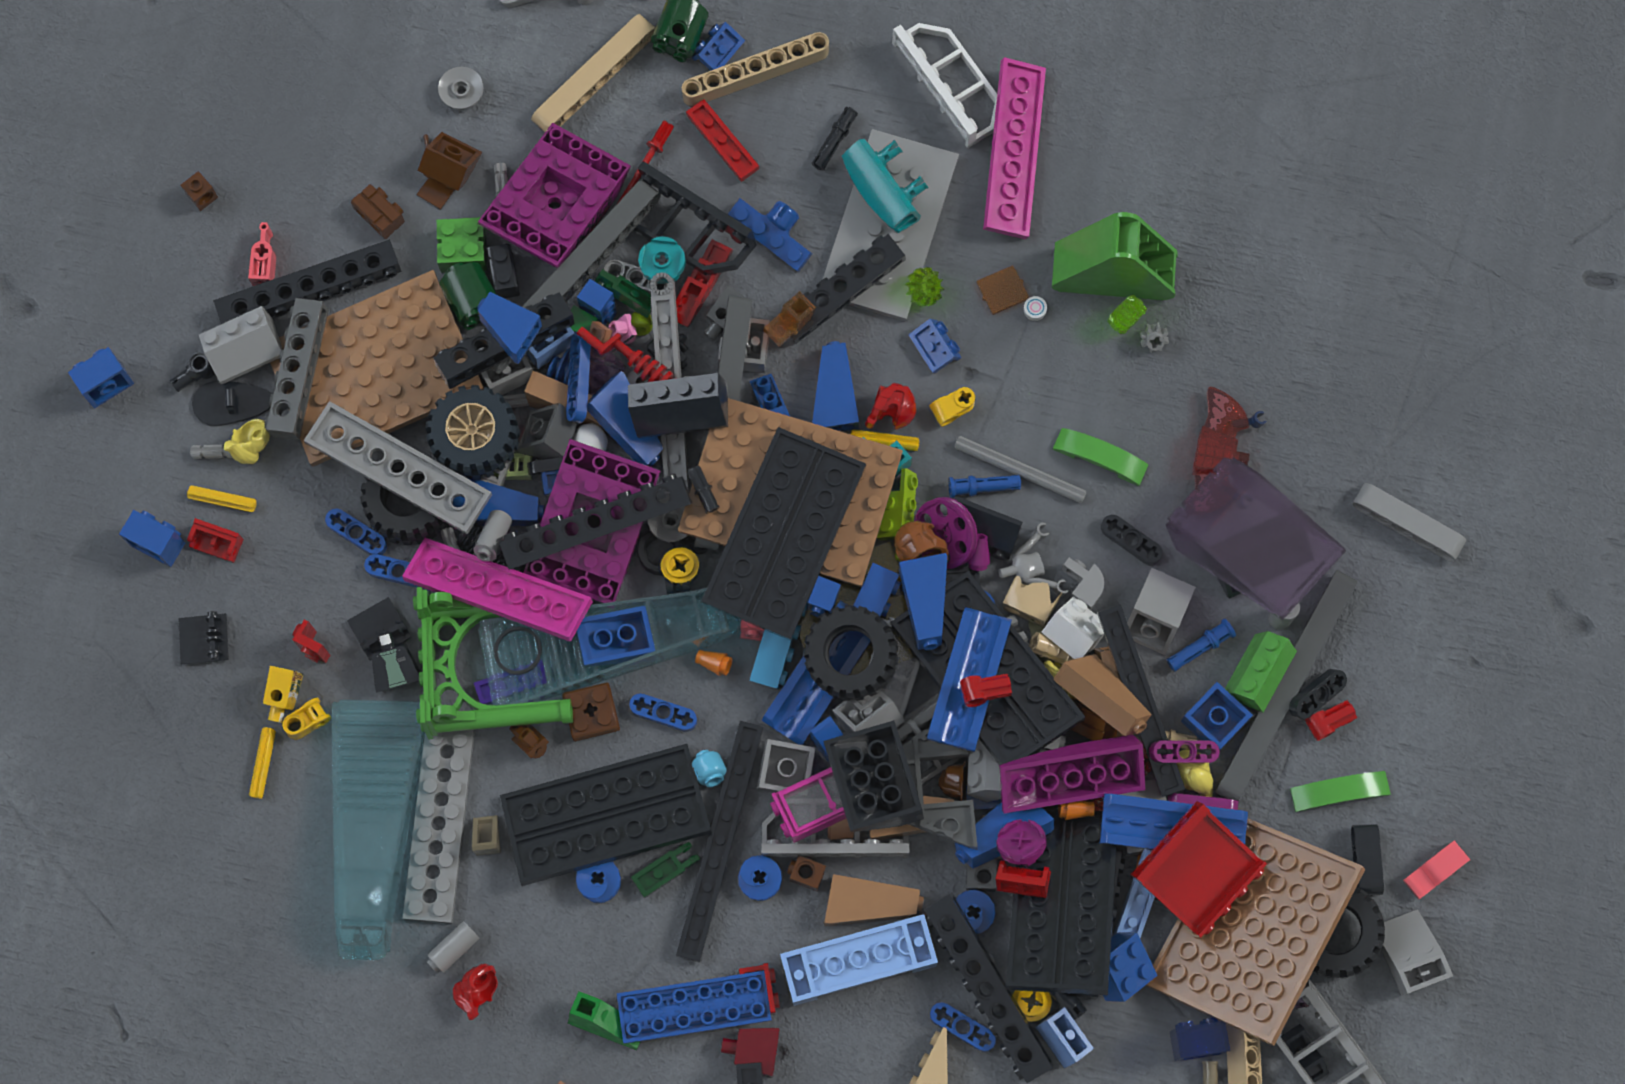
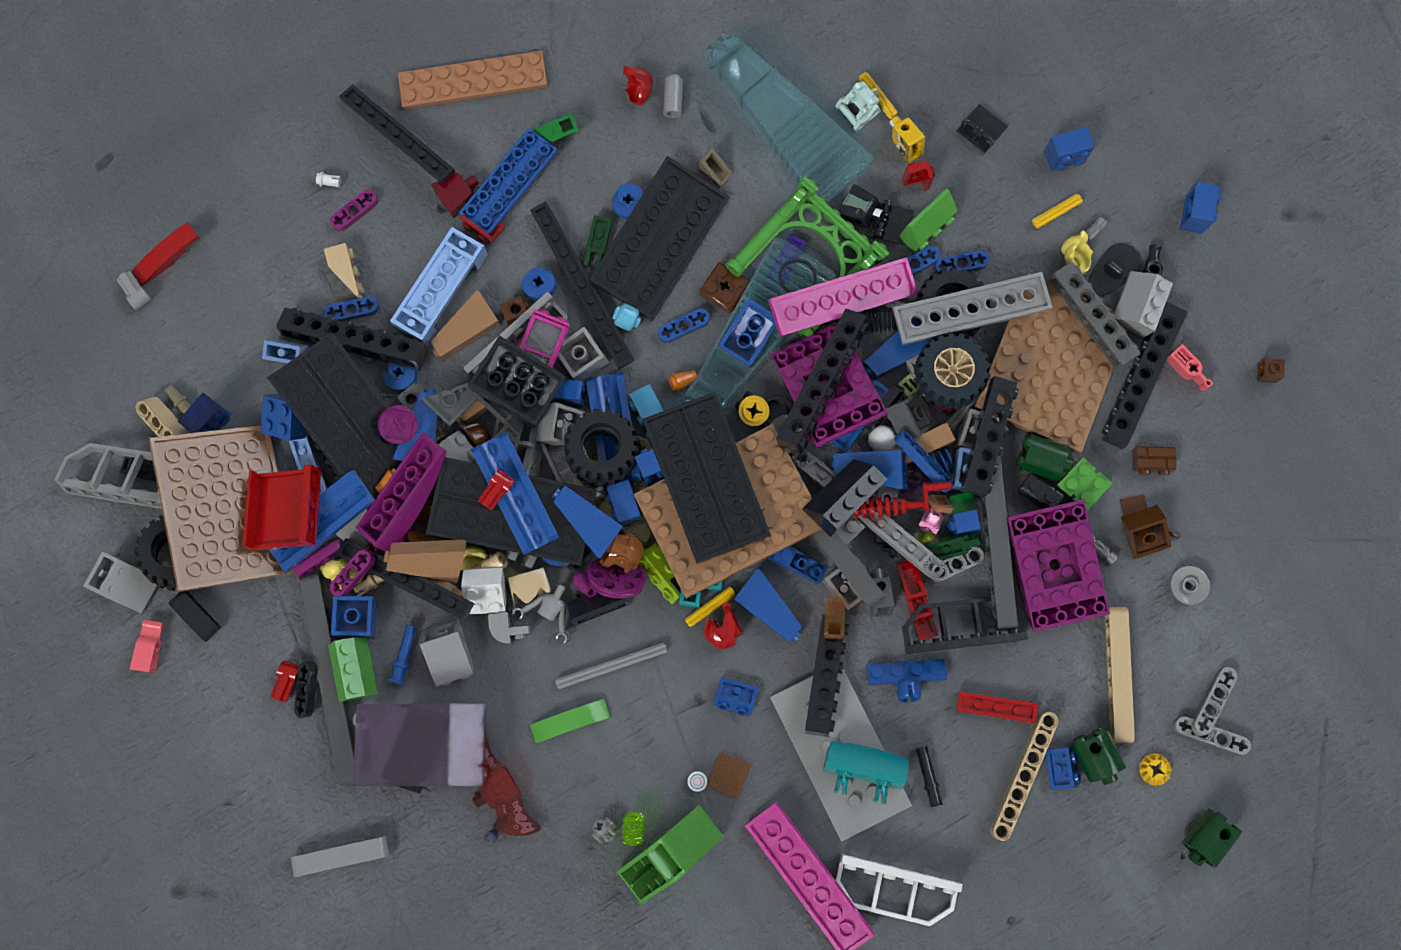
camera: 140 degrees right, 5 degrees up
(214, 540) = (1035, 185): red hinge -> none
(283, 763) = (865, 100): none -> light aqua piece
(307, 718) = (878, 139): yellow piece -> none
(347, 592) = (929, 222): none -> bright green slope
(450, 836) = (734, 151): light grey plate -> none
(491, 534) = (878, 323): light grey brick -> none
(509, 324) = (992, 441): blue slope -> none
(529, 740) = (739, 236): reddish brown hips -> none
(653, 250) = (962, 586): teal plate -> none
(655, 145) = (1034, 664): red piece -> none
(703, 489) = (779, 457): black axle -> none
(924, 286) = (777, 726): clear neon green gear -> none
(949, 407) = (689, 662): yellow piece -> none
(973, 485) = (630, 626): blue pin -> none
(1022, 880) = (373, 410): red hinge -> none
(1150, 544) = (488, 680): black beam -> none
(1340, 790) = (244, 642): bright green slope -> none

